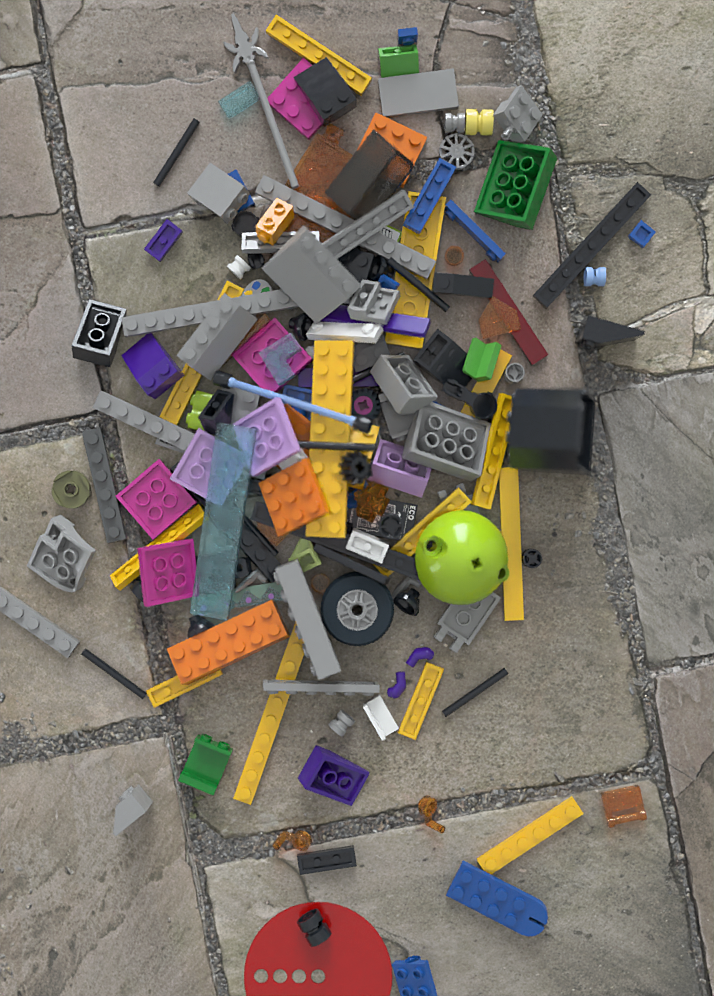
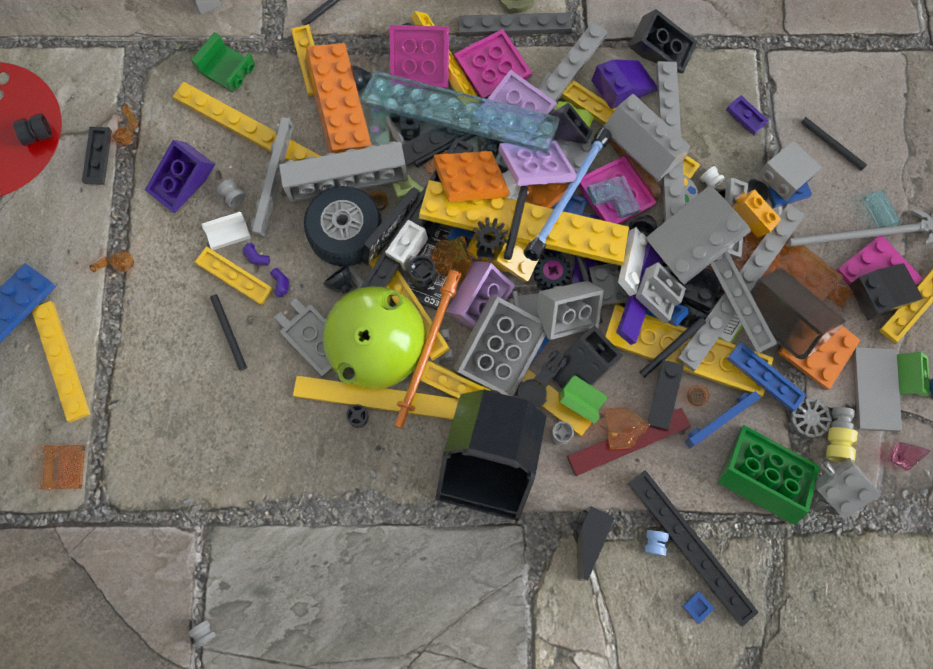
camera: 95 degrees right, 15 degrees down
(407, 498) = (447, 292): none -> orange bar
(475, 62) = (907, 455): none -> clear pink piece

